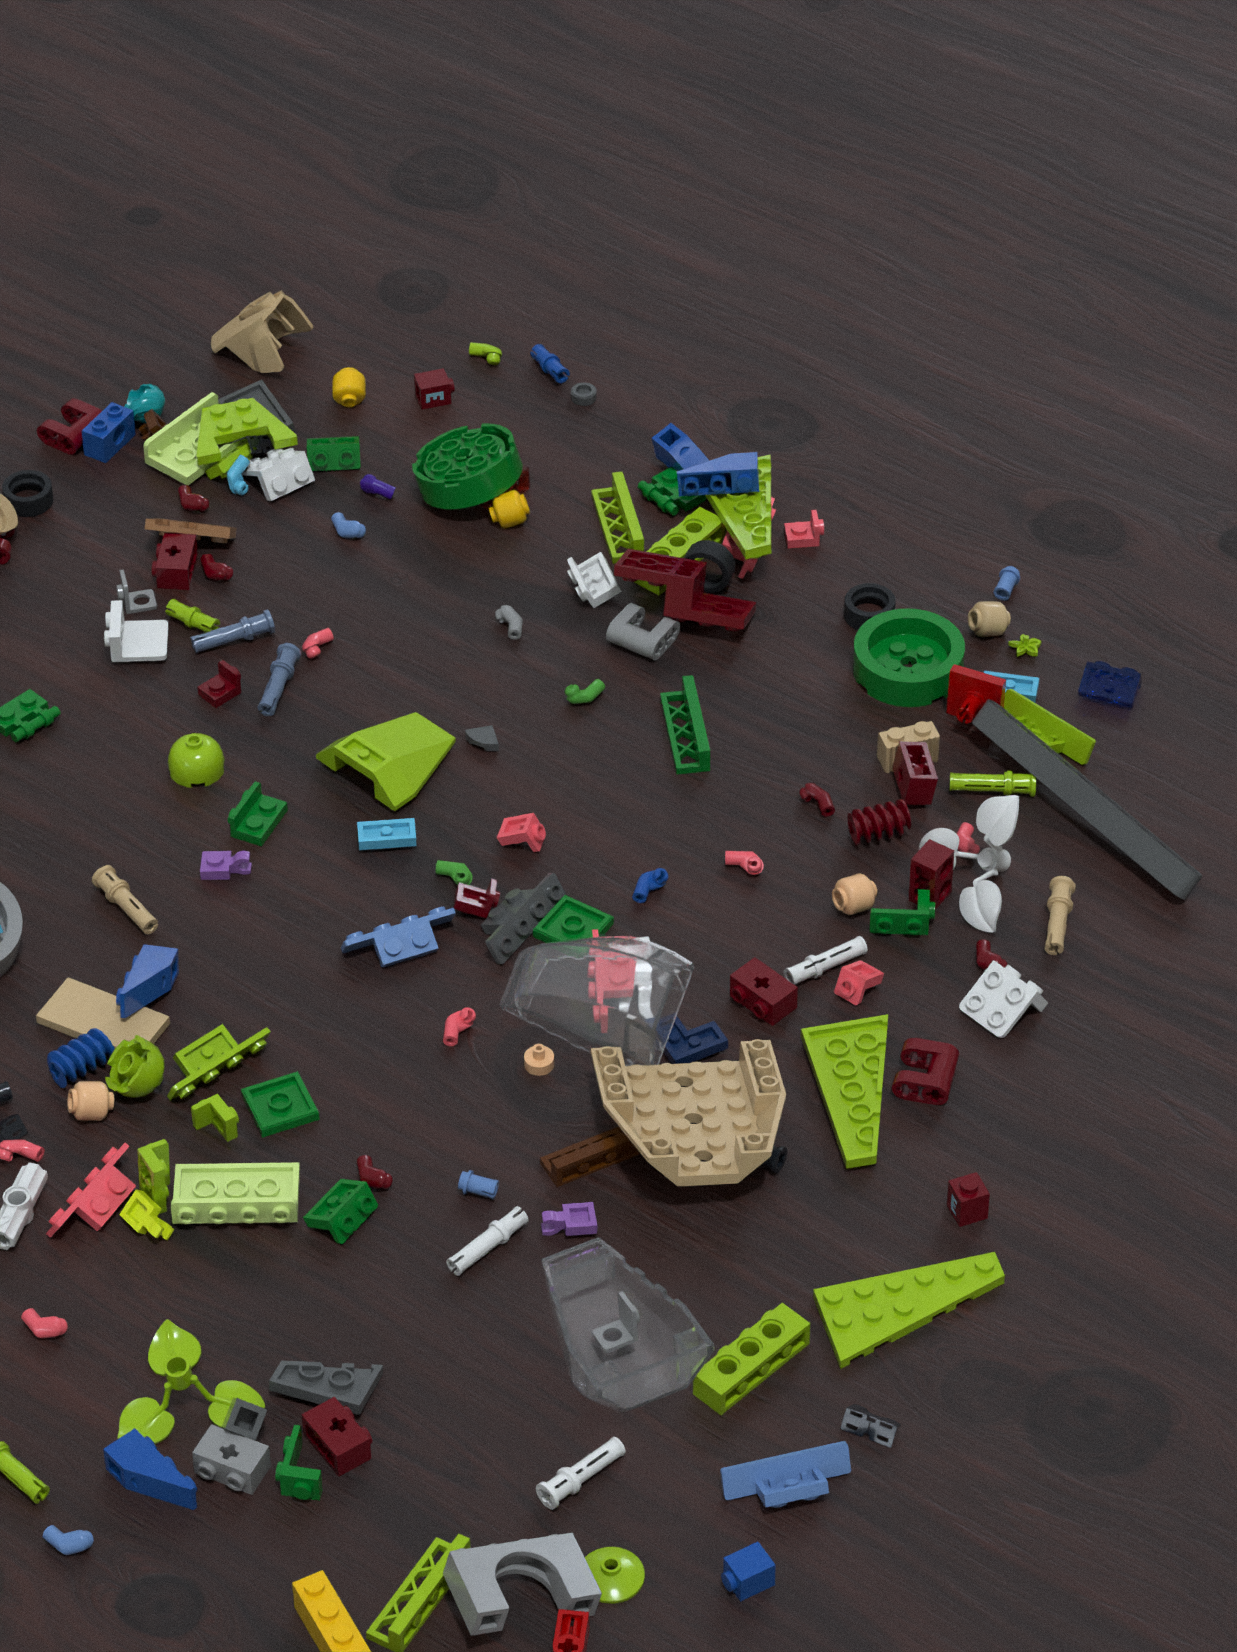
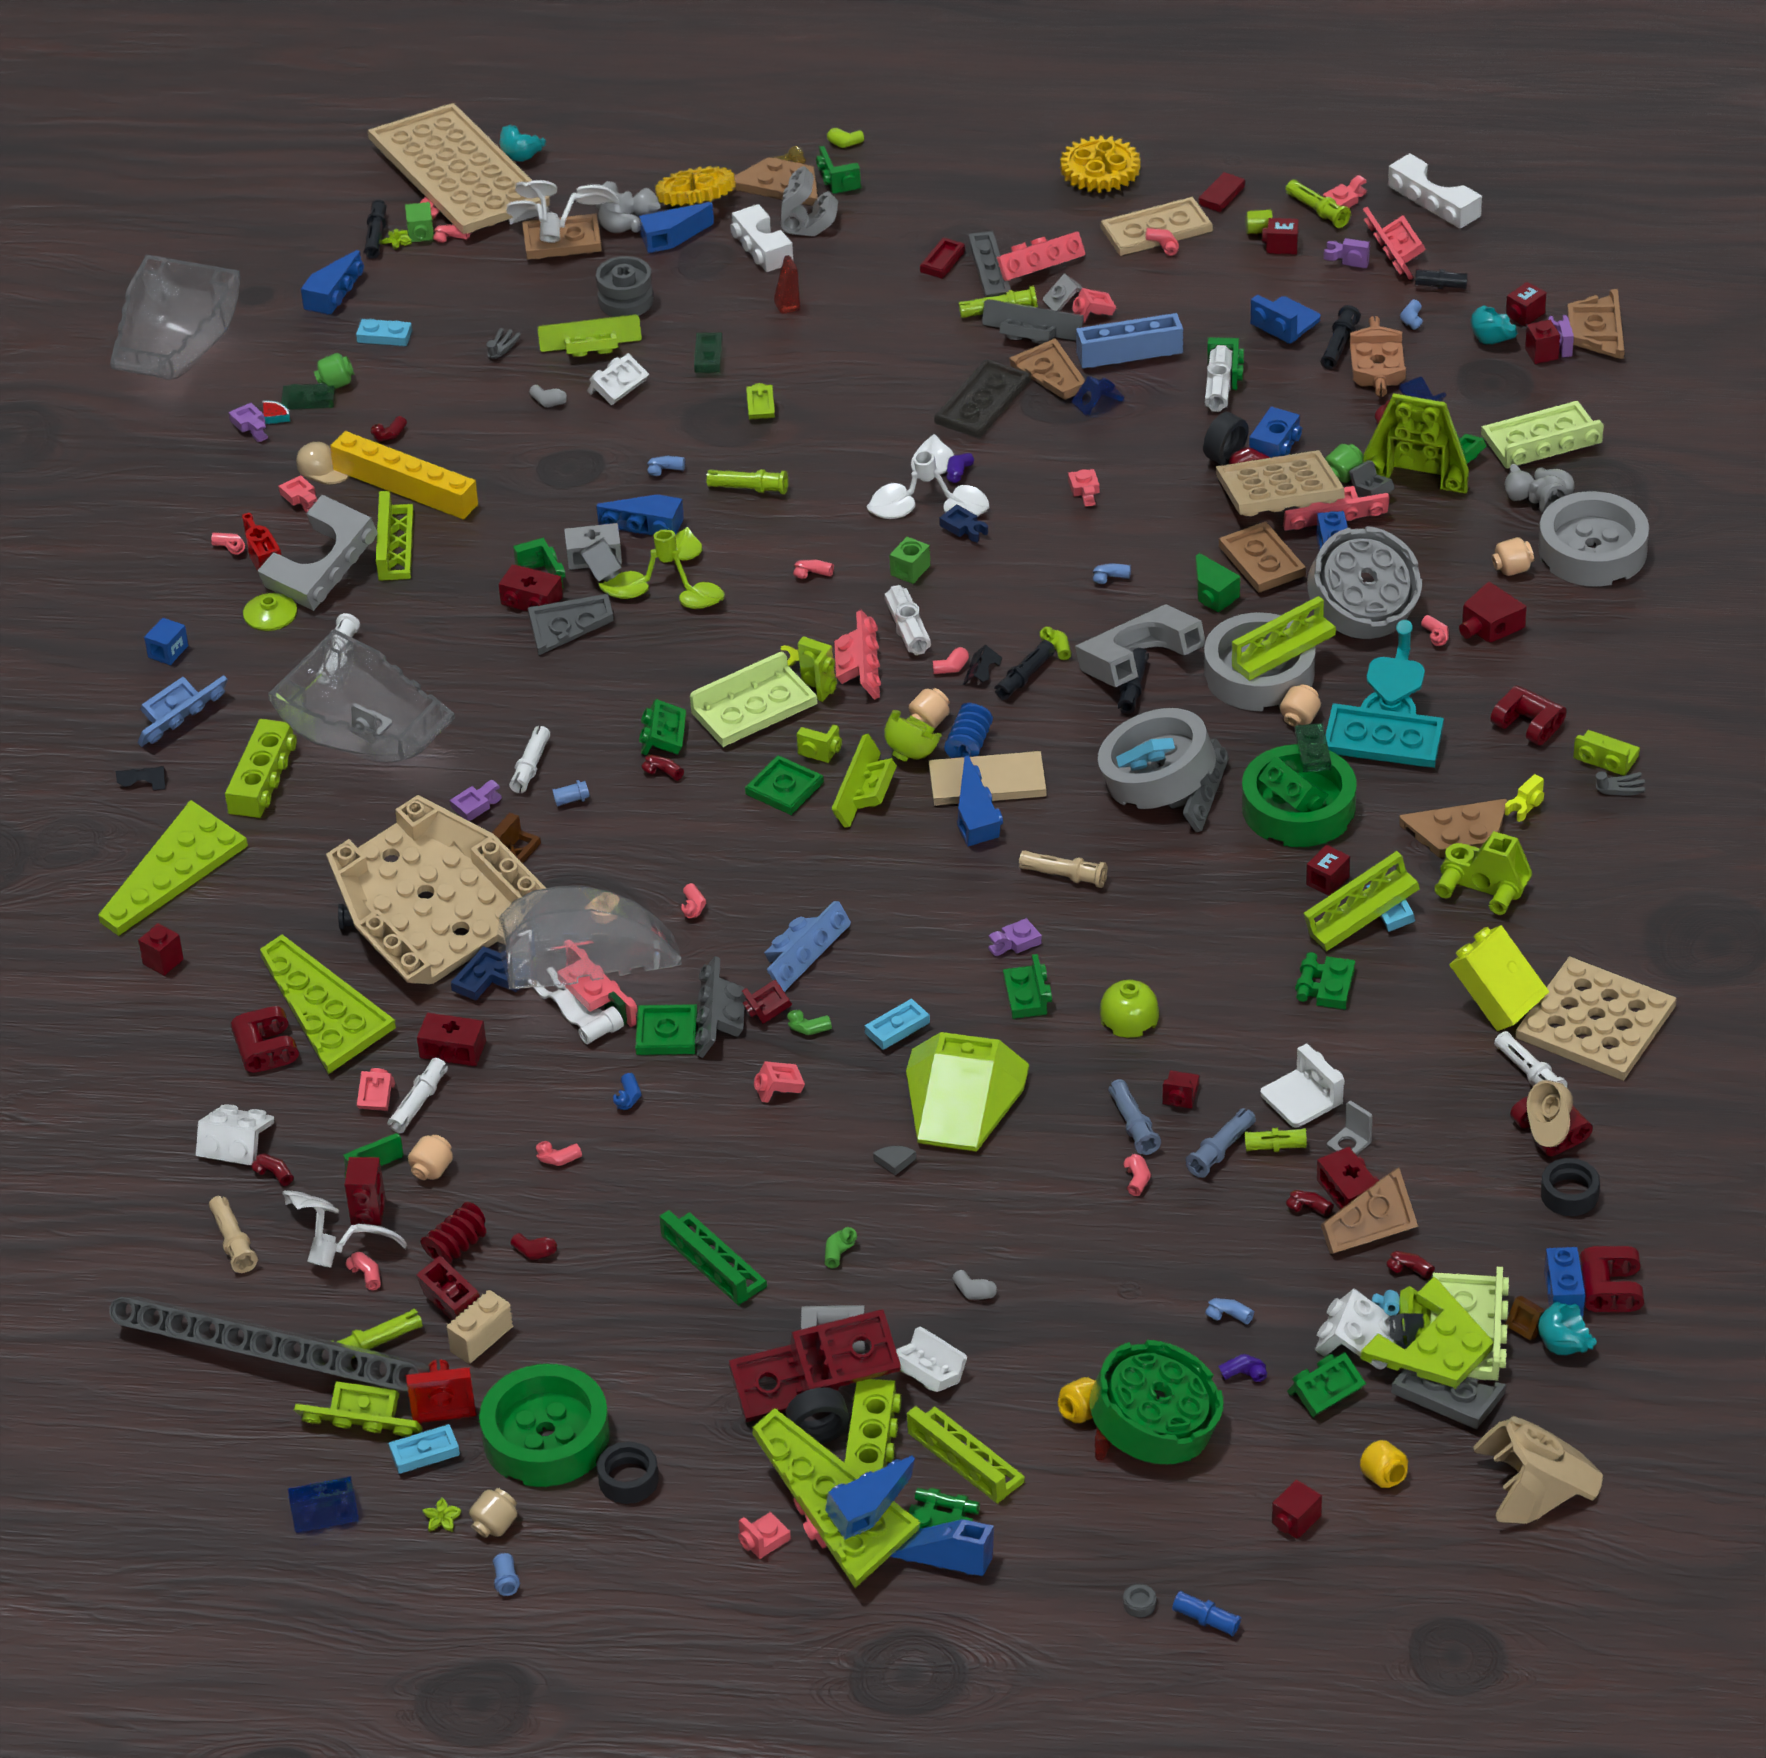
camera: 150 degrees right, 0 degrees up
(486, 350) = (1289, 1600): lime arm -> none

